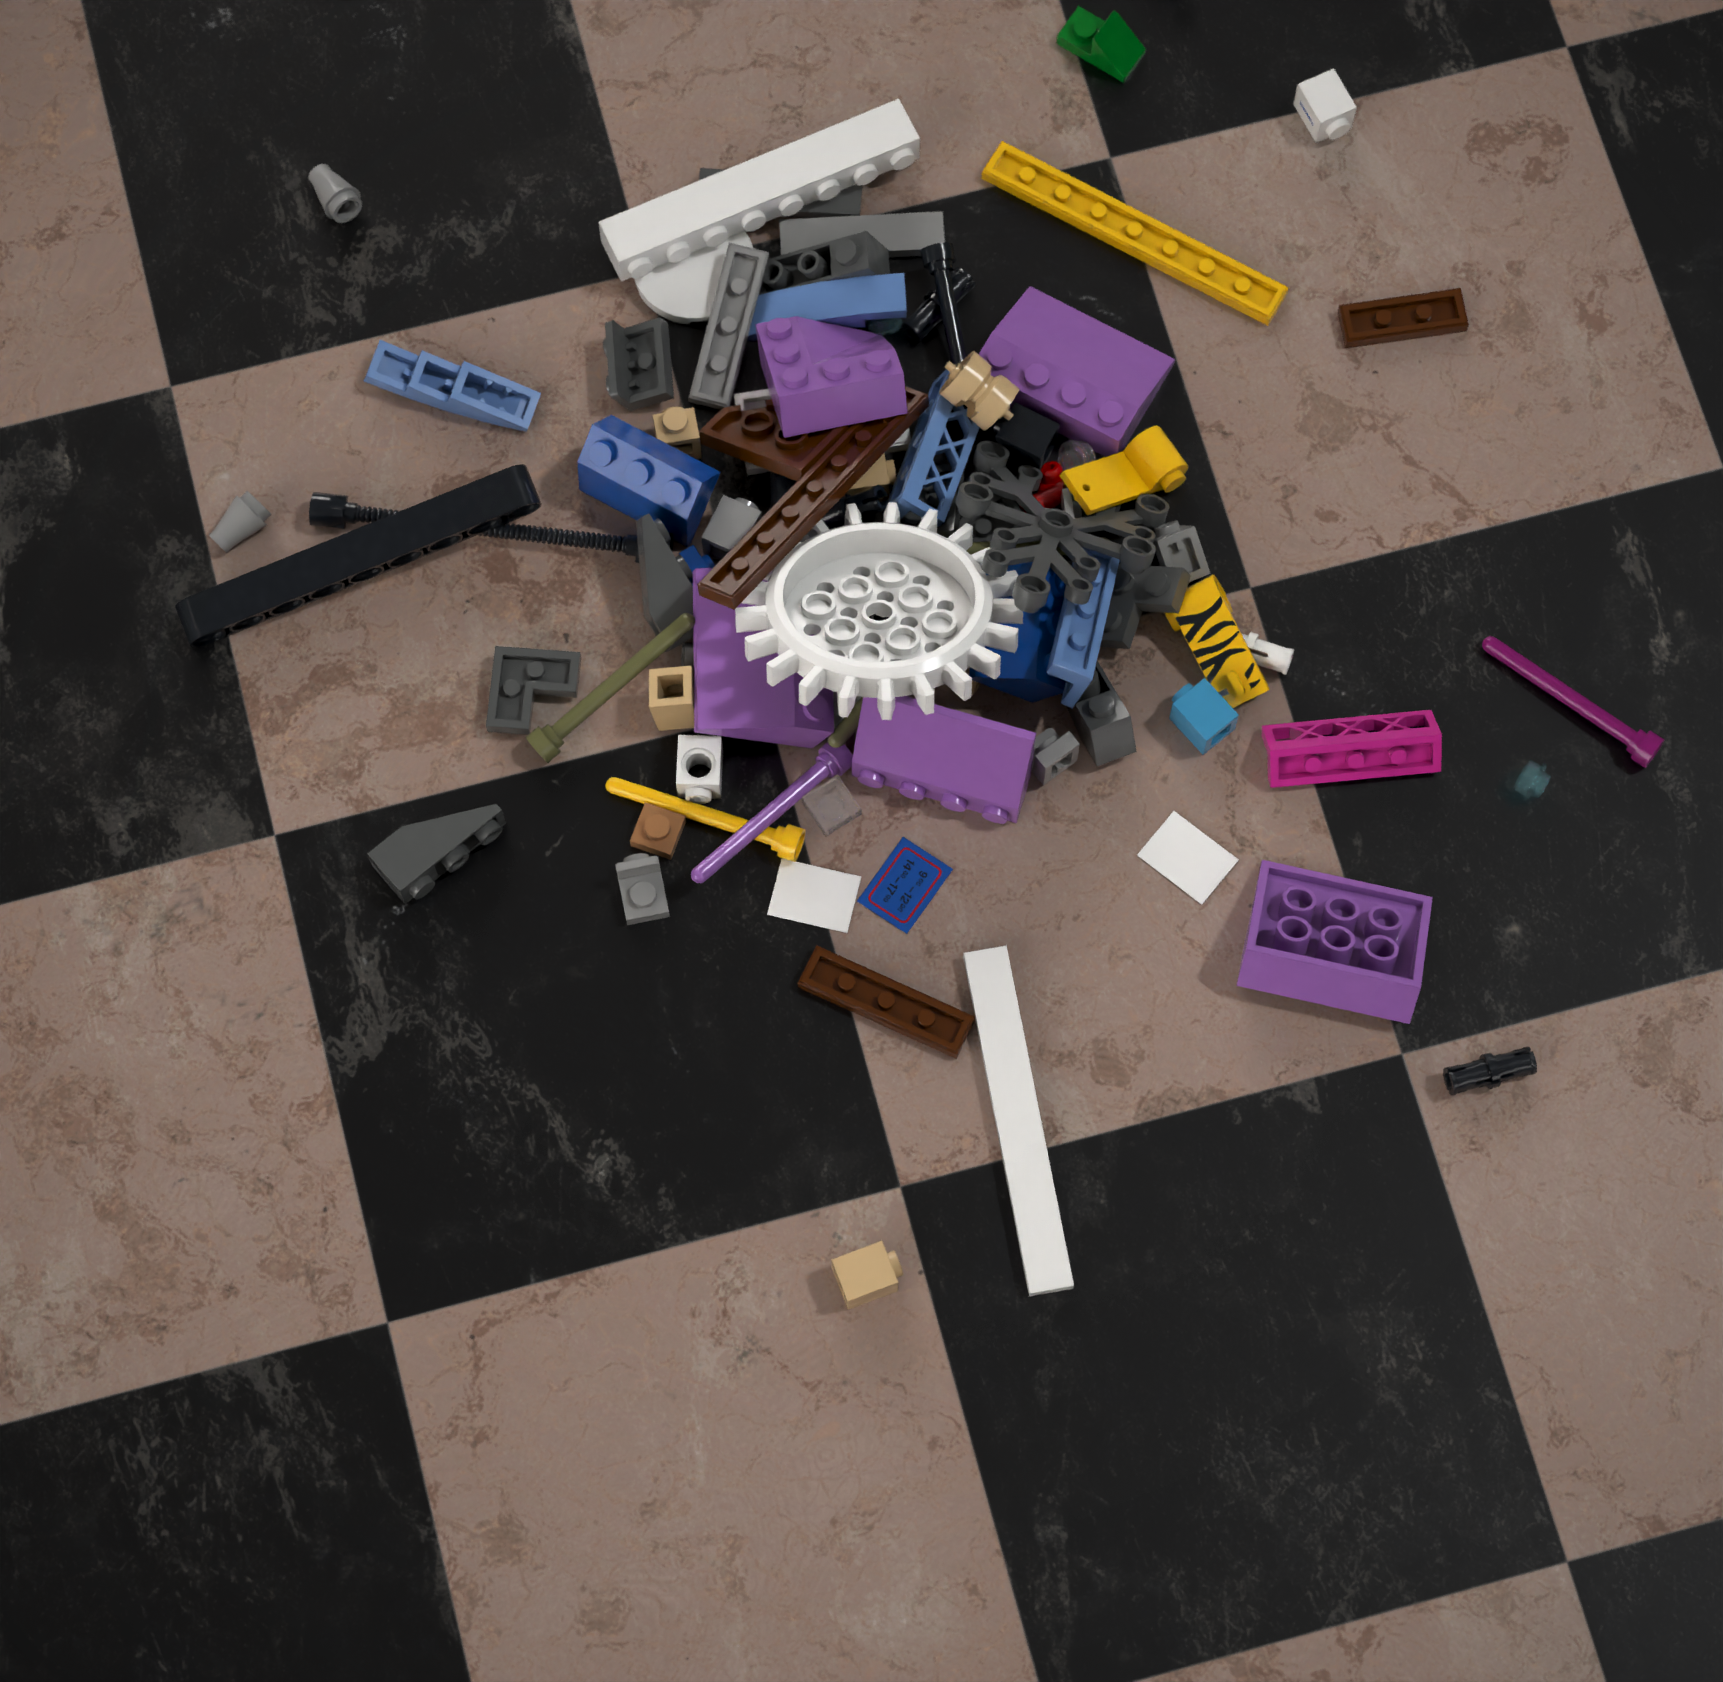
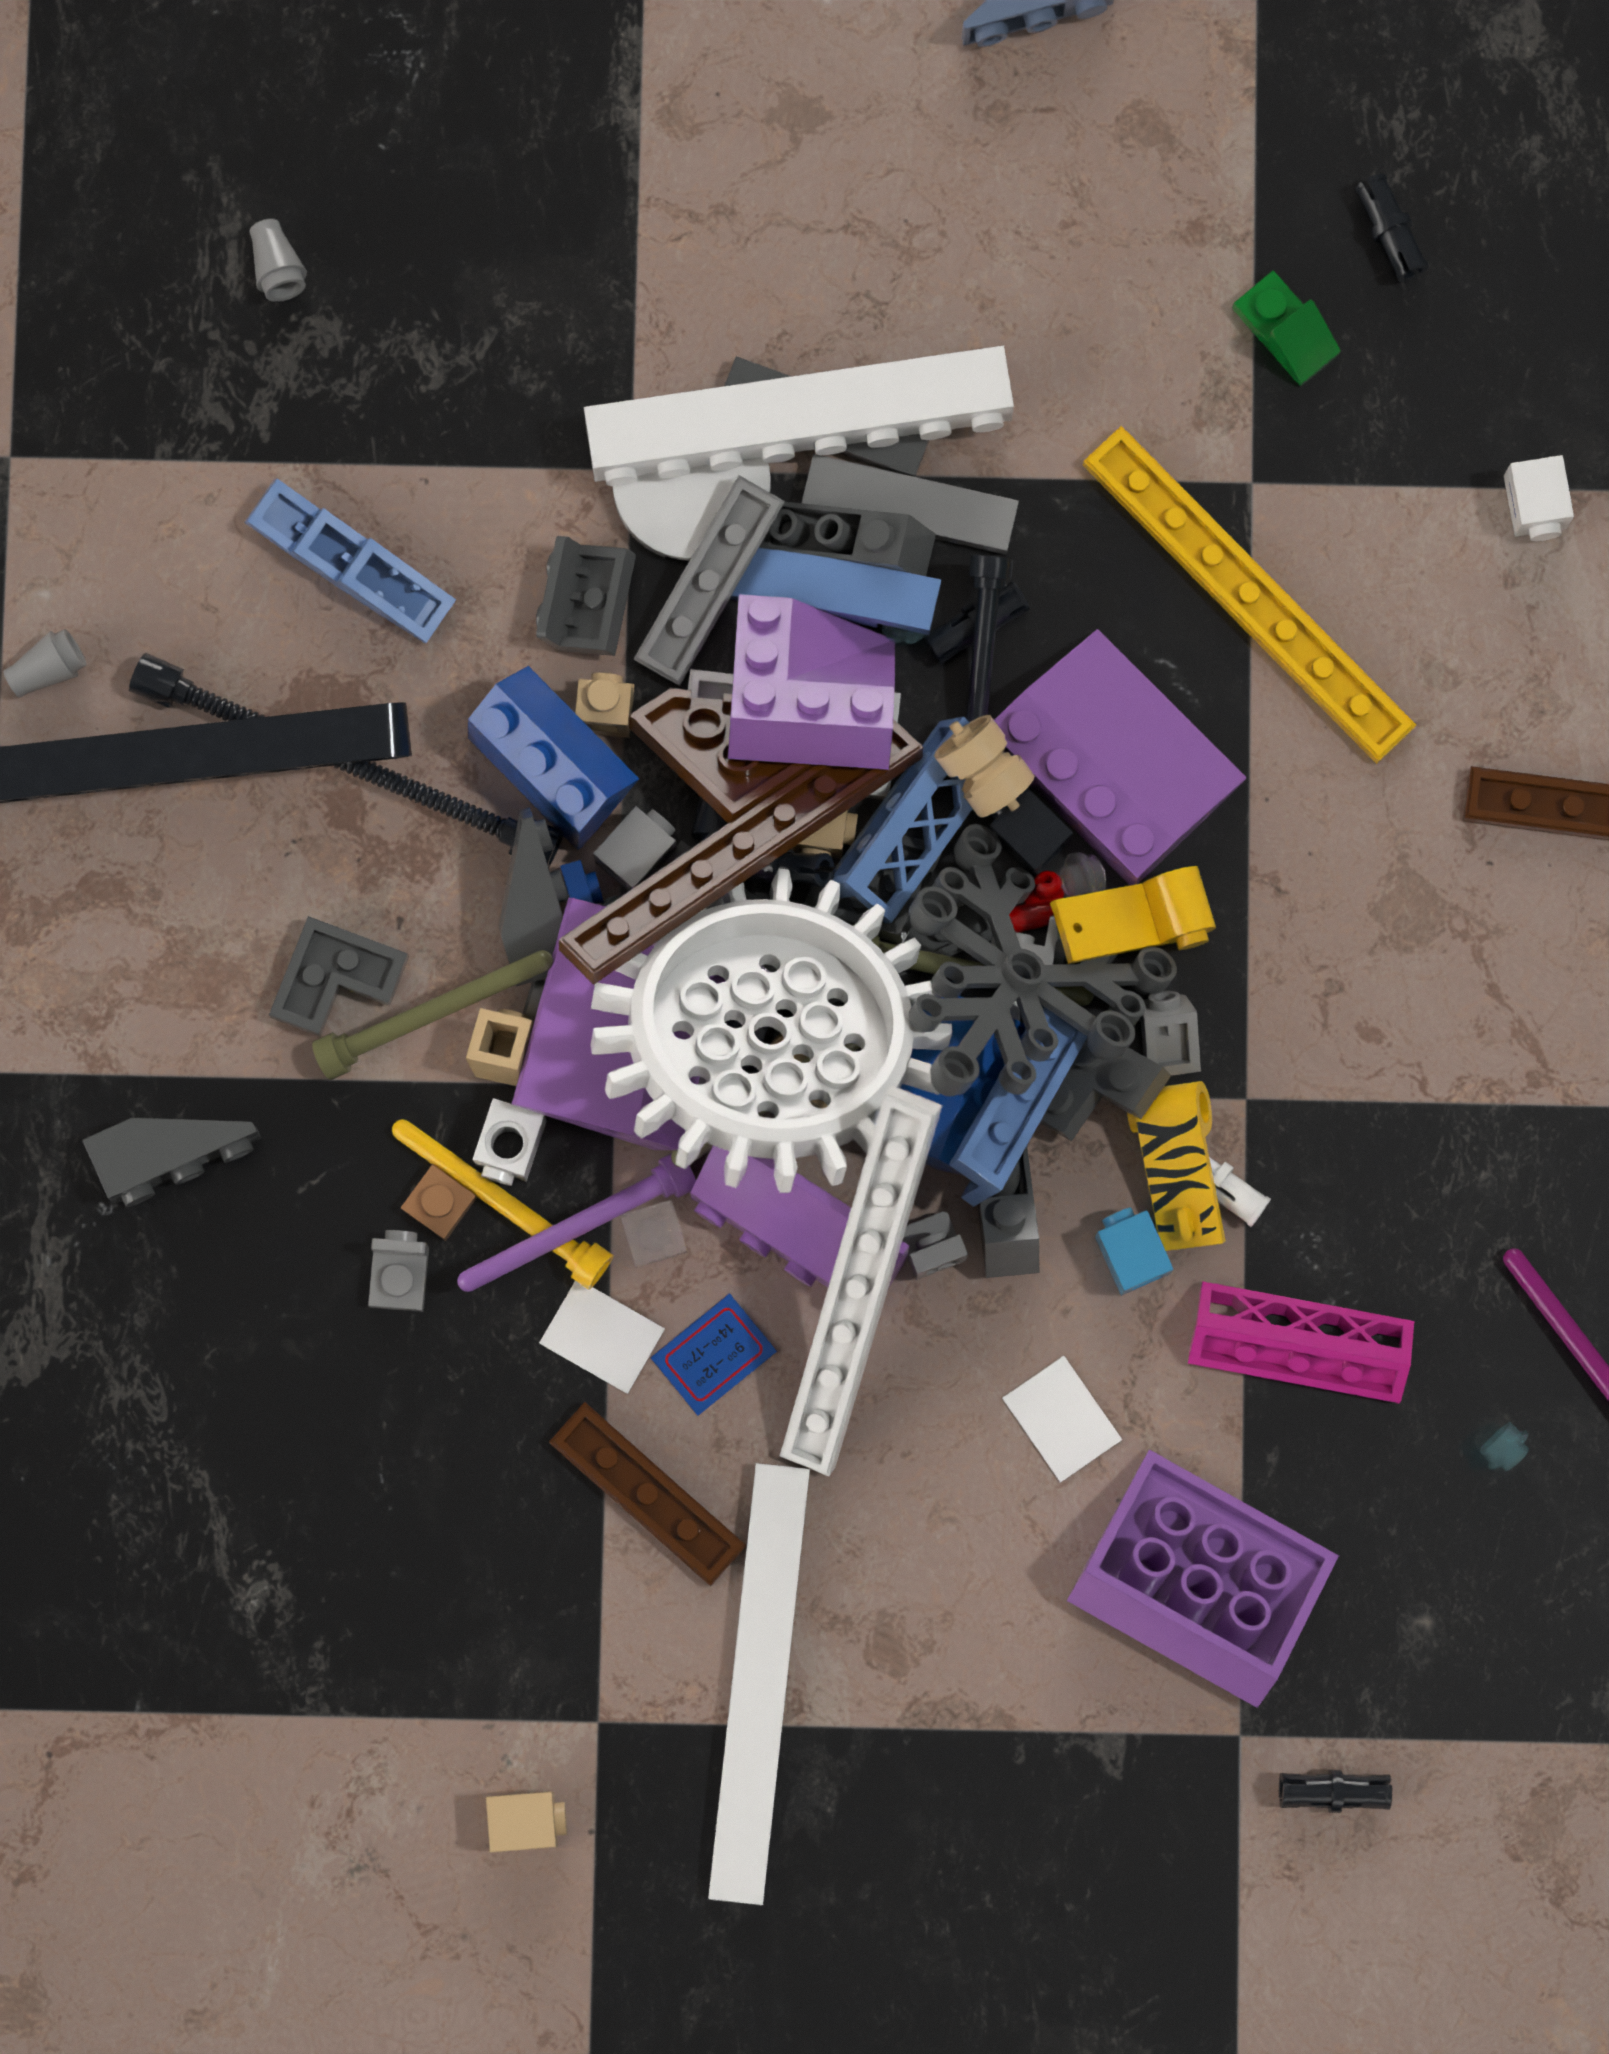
camera: 15 degrees right, 10 degrees up
(1006, 772) = (860, 1279): none -> white tile

